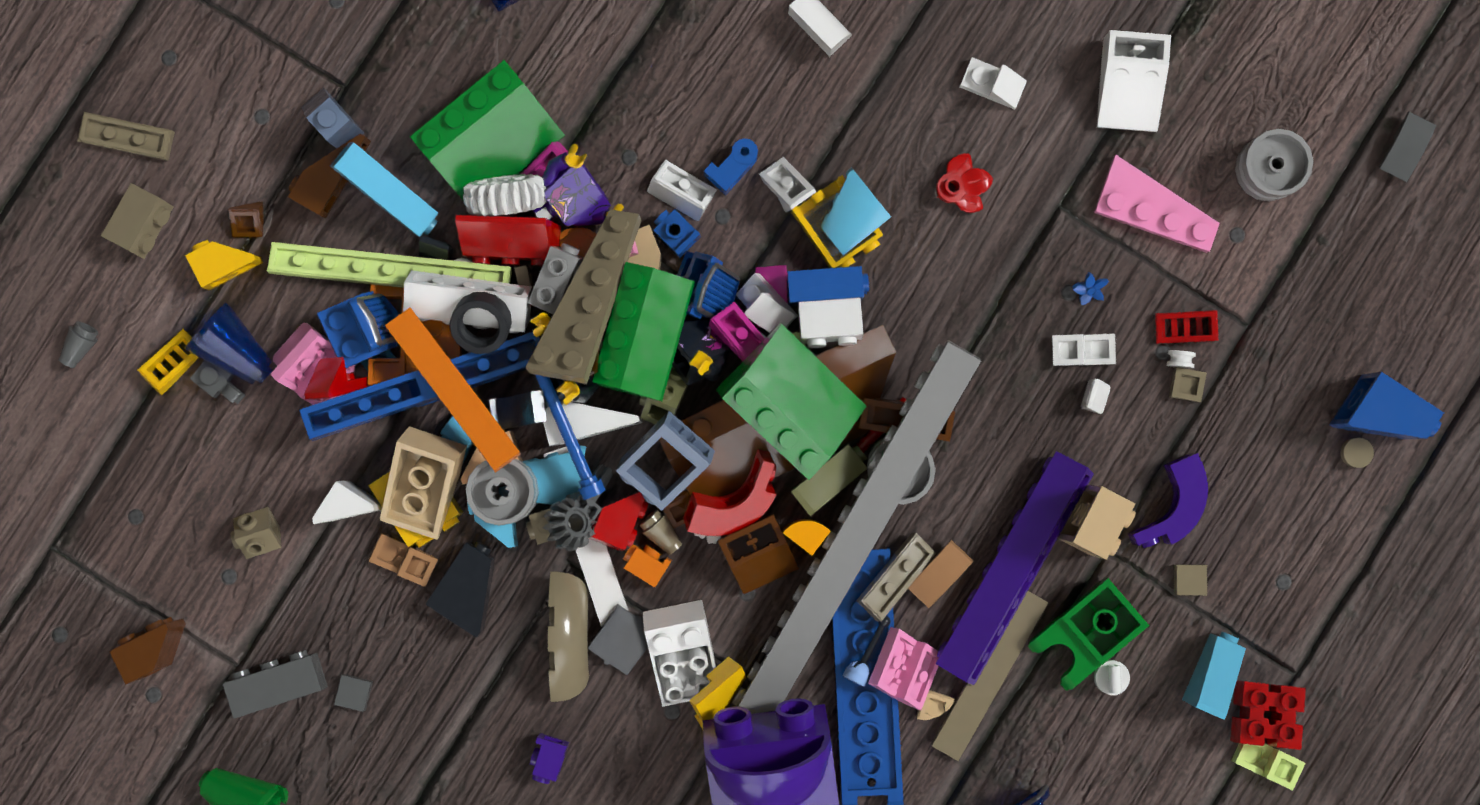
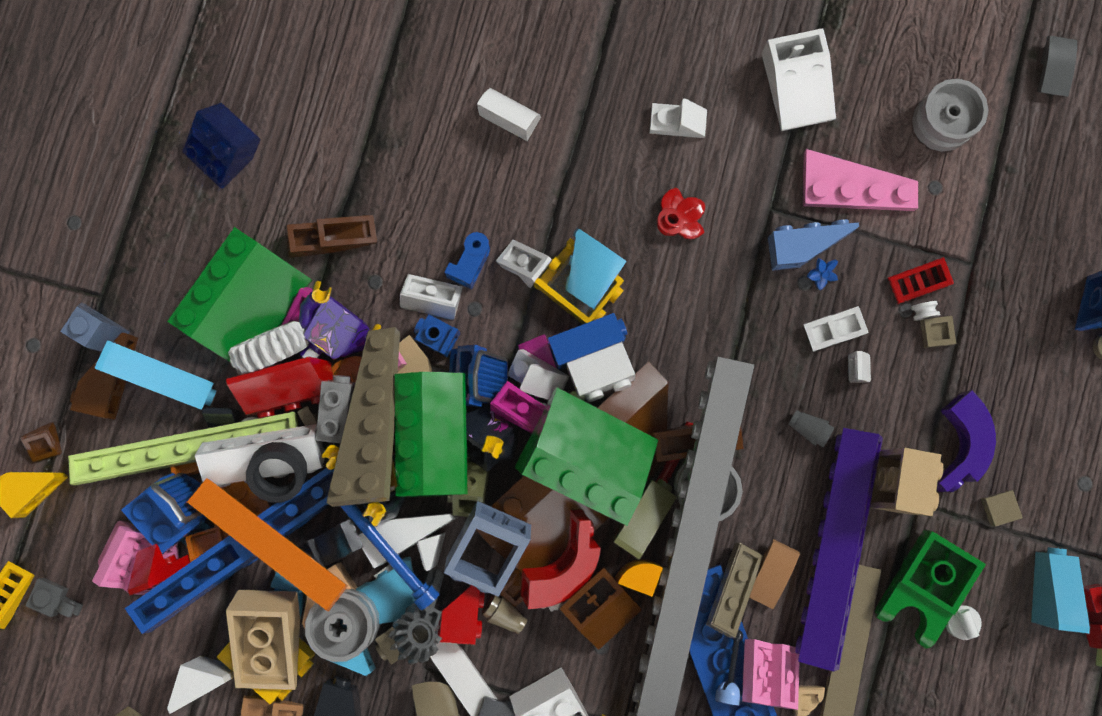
camera: 20 degrees left, 5 degrees down
(231, 347) = (52, 564): clear blue cone -> none
(597, 96) = (330, 235): none -> reddish brown slope
(607, 445) = (430, 550): none -> white slope
(646, 564) = (499, 650): orange brick -> none
(1026, 442) = (812, 428): none -> dark grey cone
(1074, 254) = (796, 247): none -> medium blue slope

